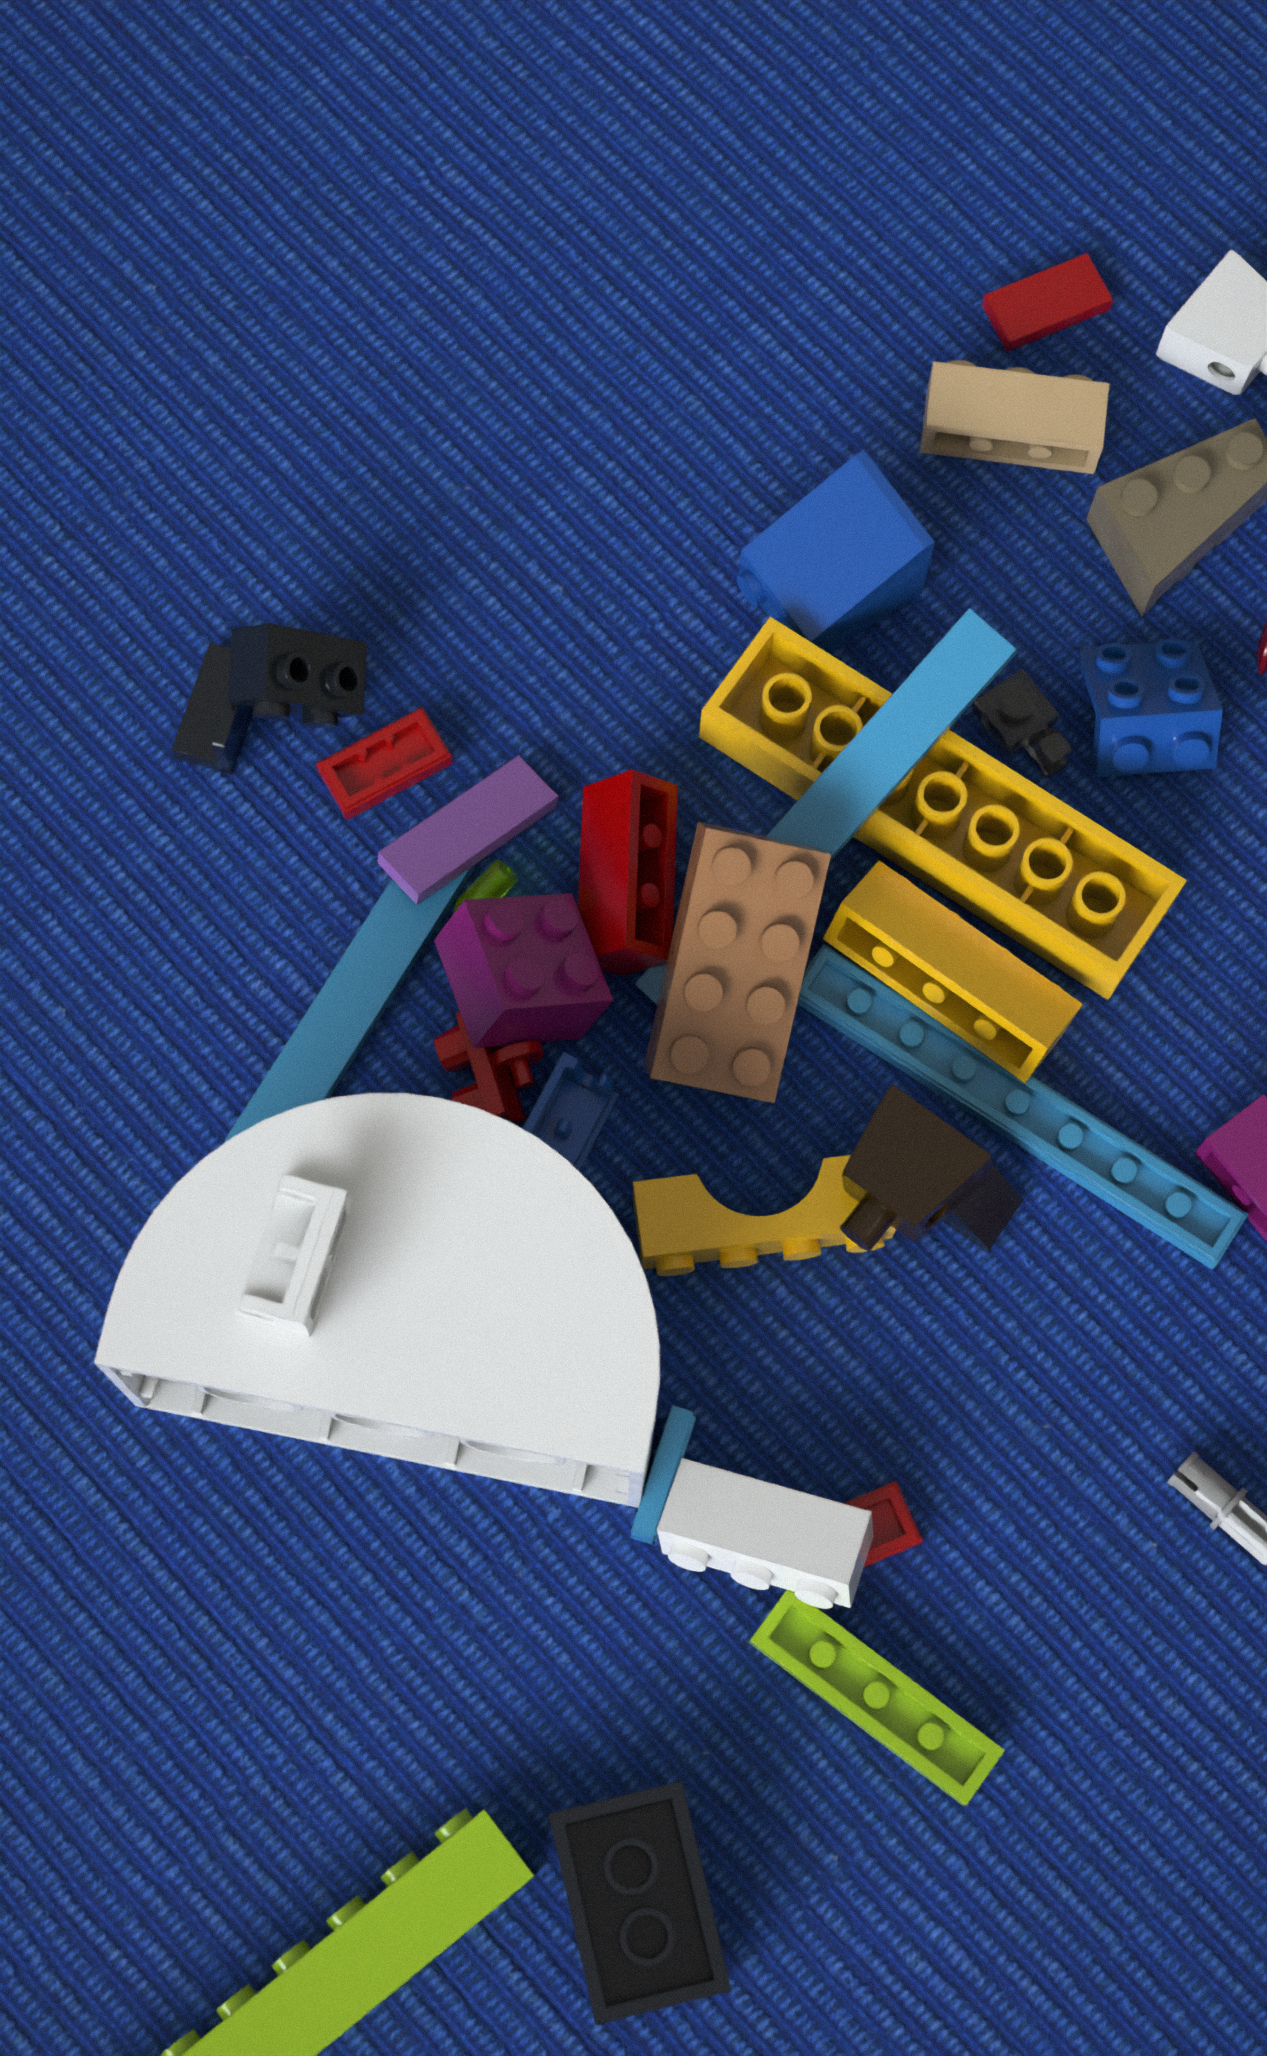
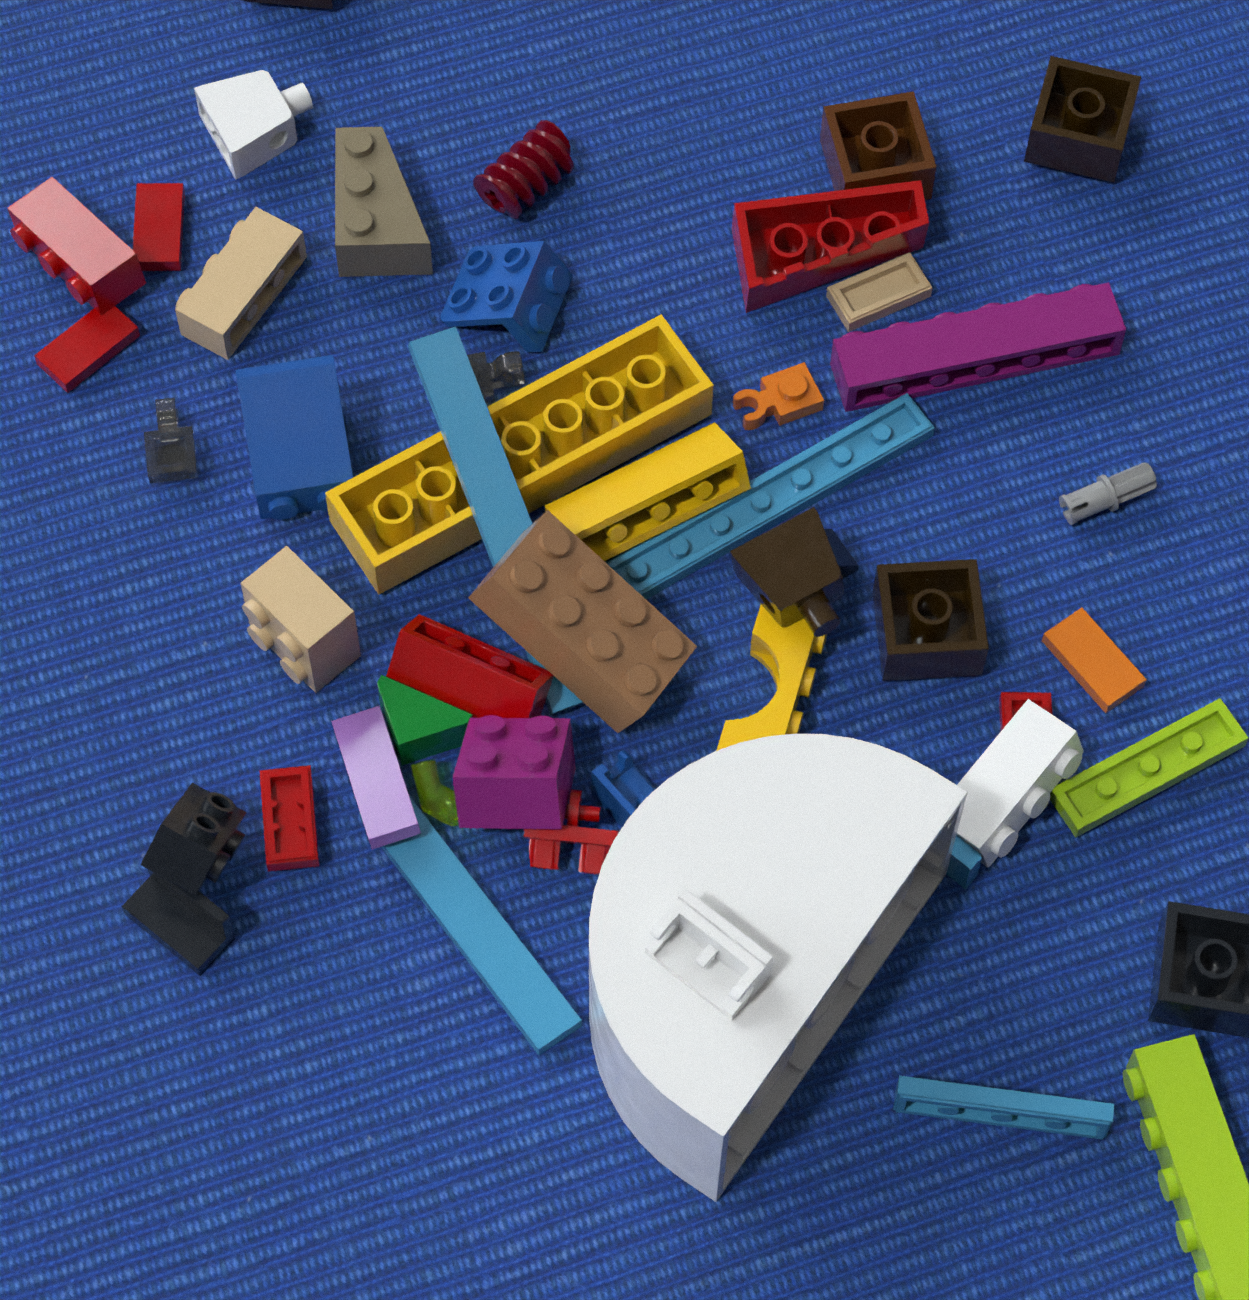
camera: 65 degrees left, 10 degrees down
(362, 1683) = (1003, 1107): none -> dark azure tile
(550, 840) = (419, 722): none -> green slope
(608, 663) = (300, 620): none -> tan brick
(772, 442) = (171, 447): none -> clear smoke plate
(860, 300) = (86, 347): none -> red tile
(941, 1357) = (930, 620): none -> dark brown brick
(965, 226) = (75, 246): none -> brick
(993, 1577) = (1093, 660): none -> orange tile
(1176, 1076) = (784, 394): none -> orange plate

